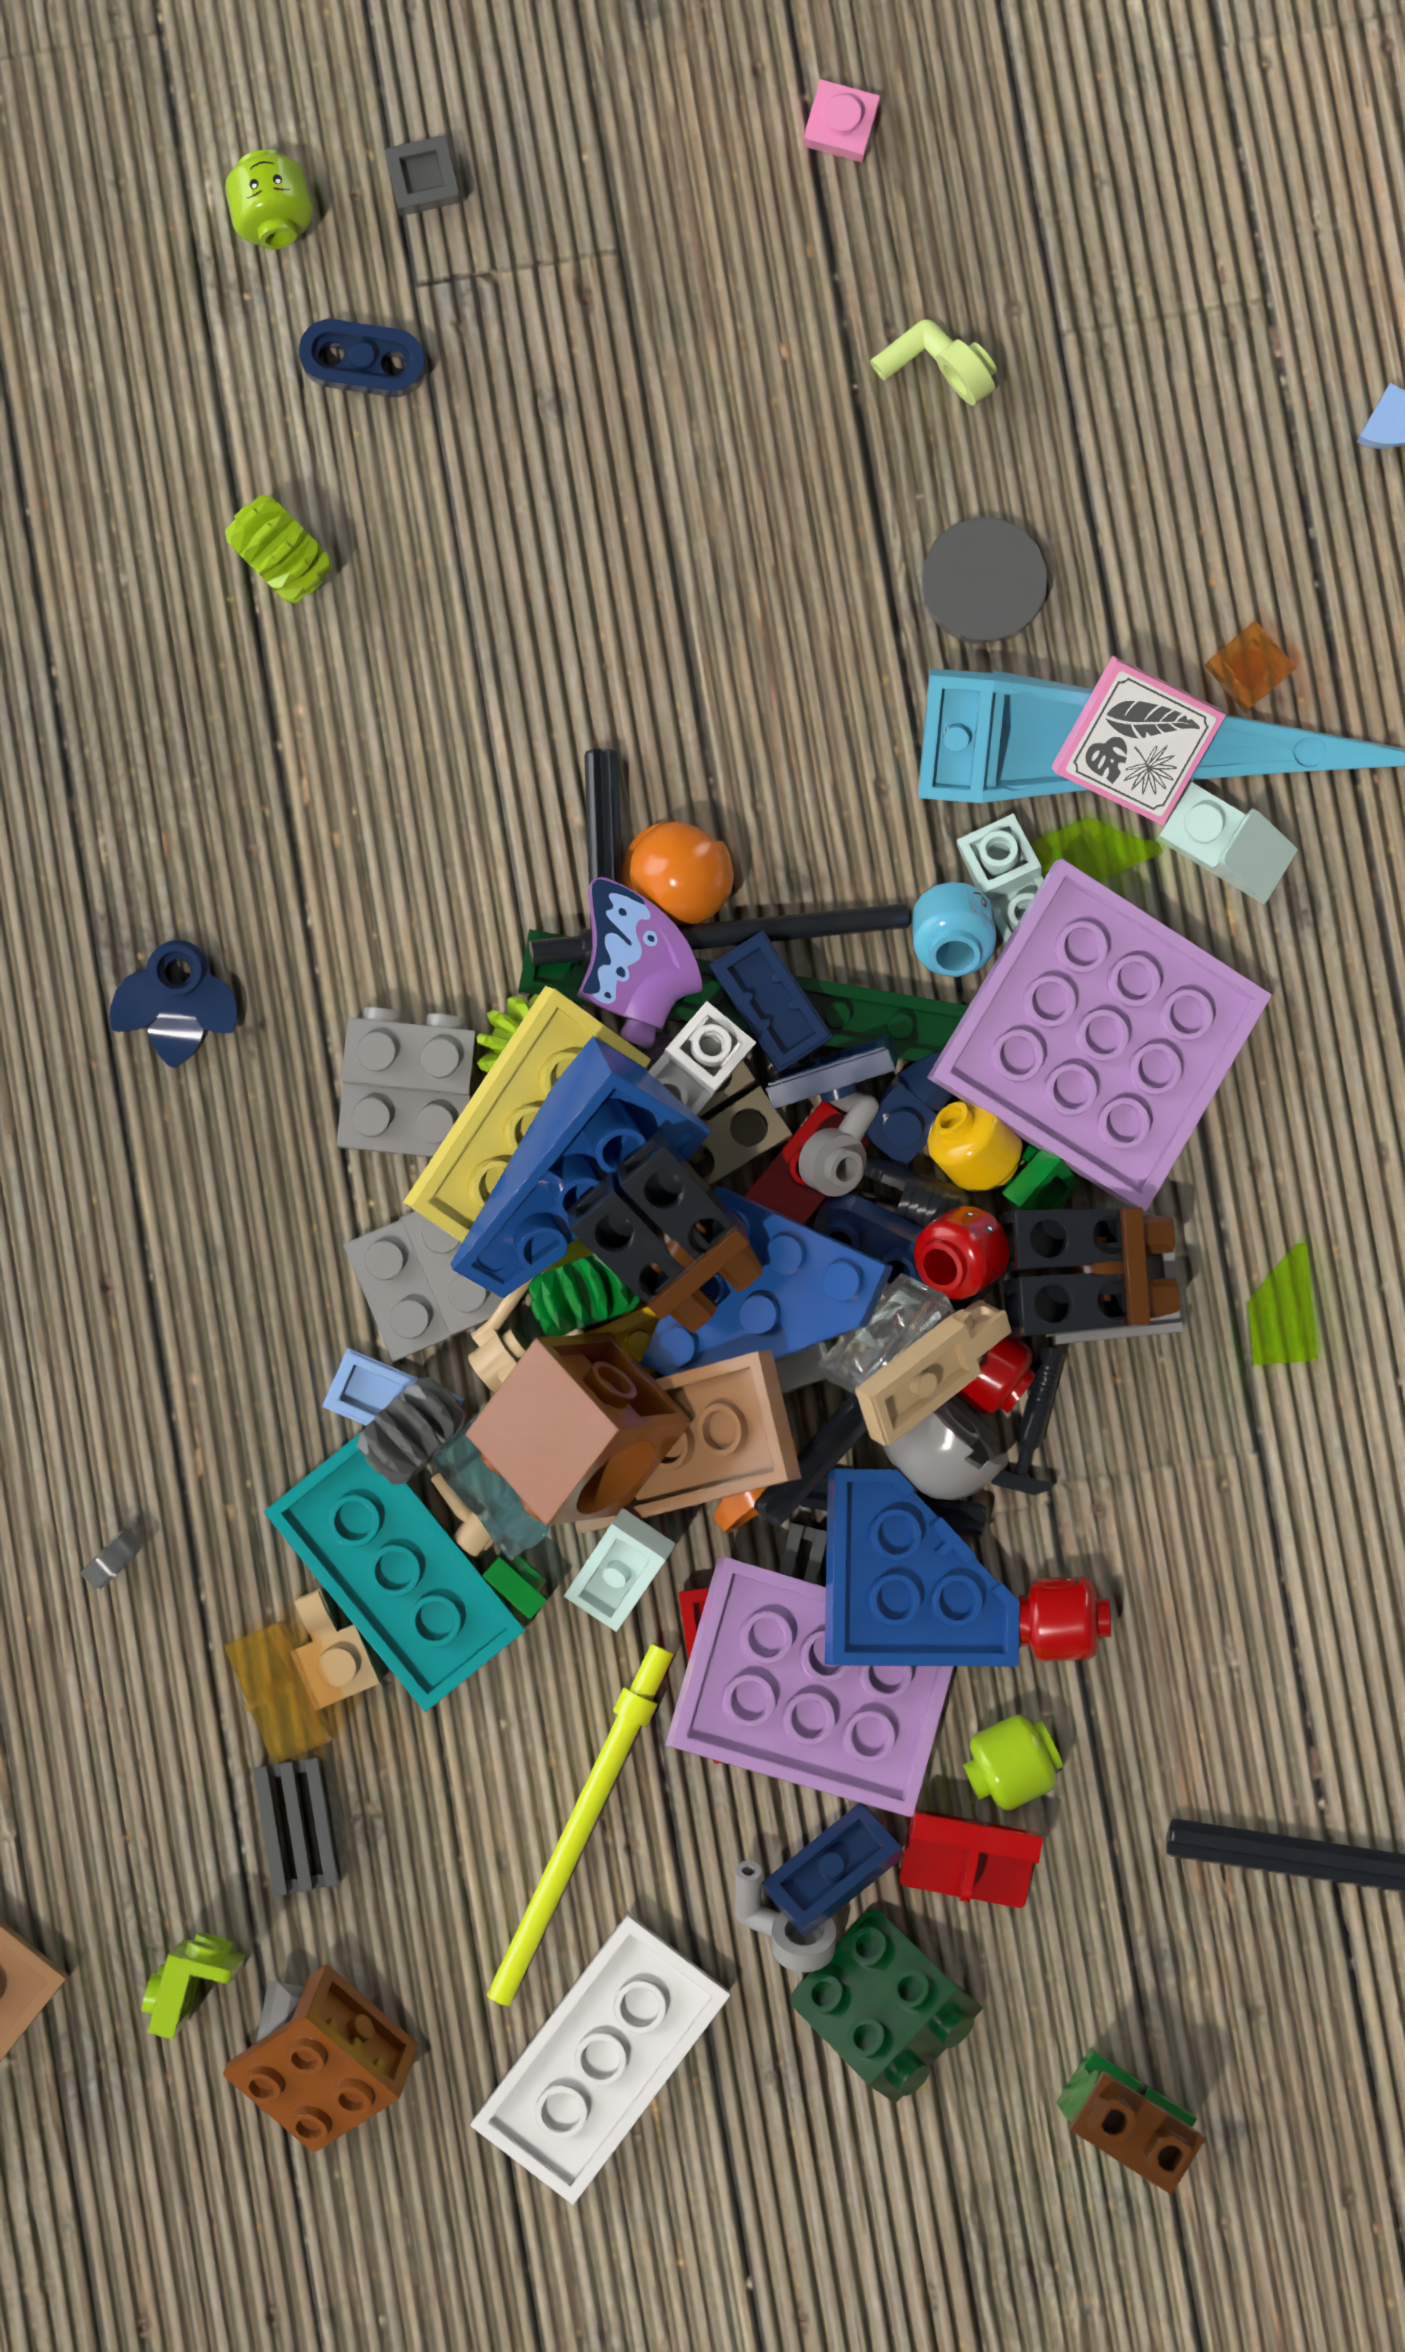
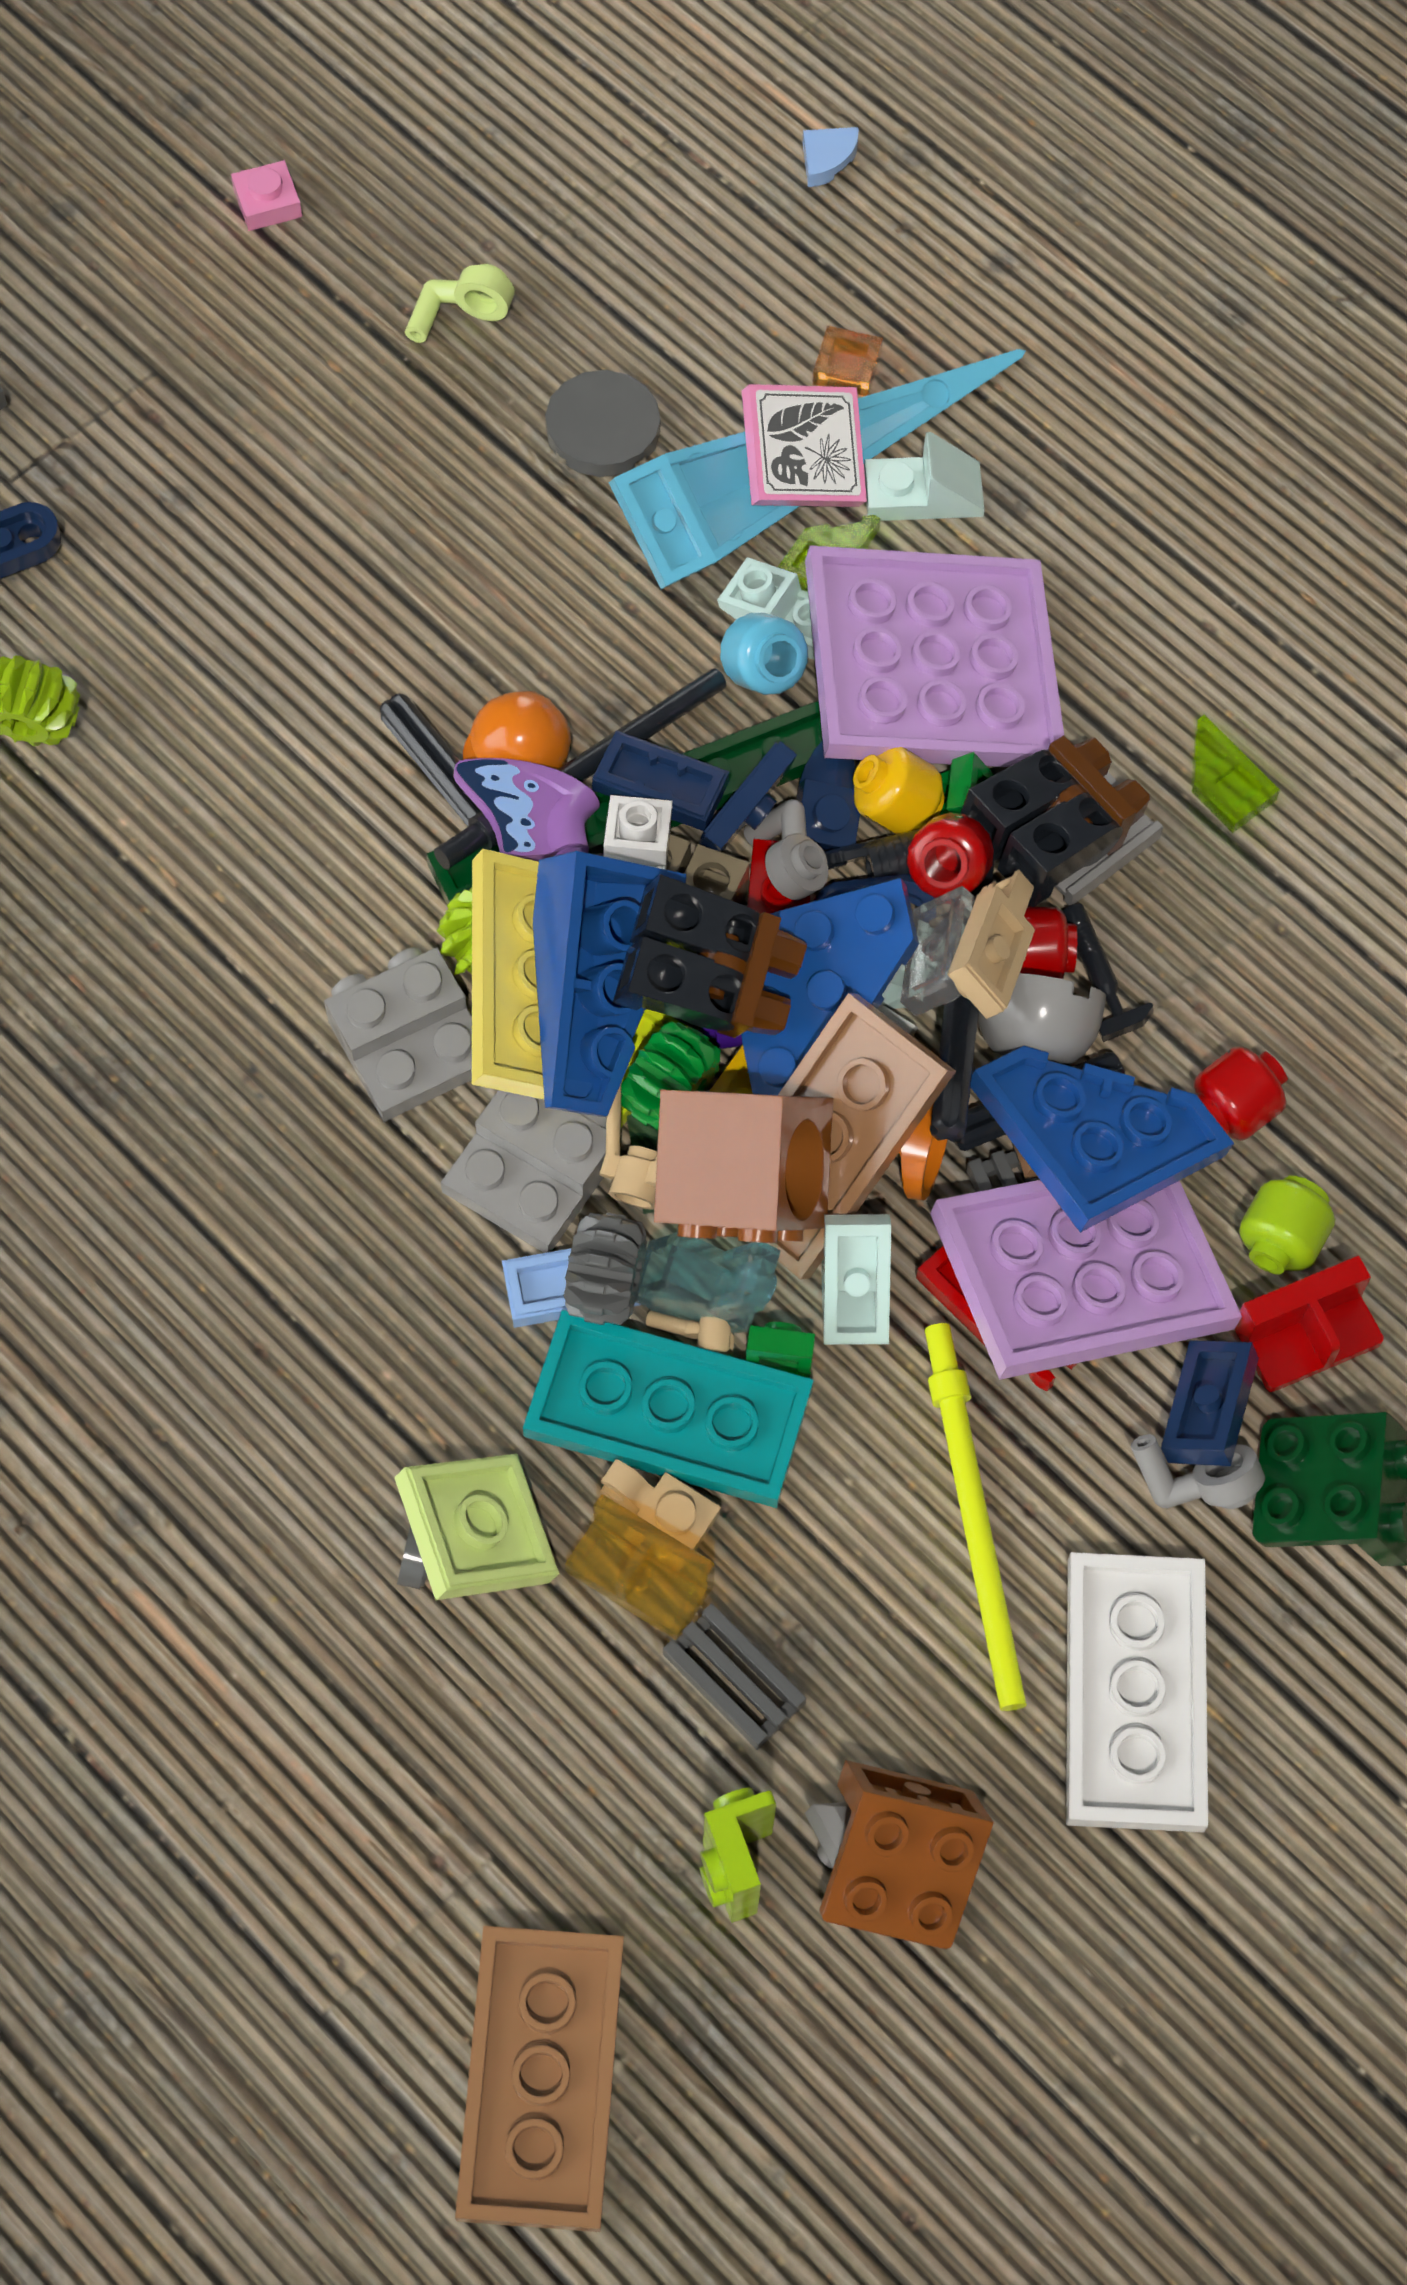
camera: 30 degrees left, 20 degrees down
(170, 1571) = (476, 1526): none -> yellowish green tile
(171, 1011) = (171, 1098): dark blue plate -> none

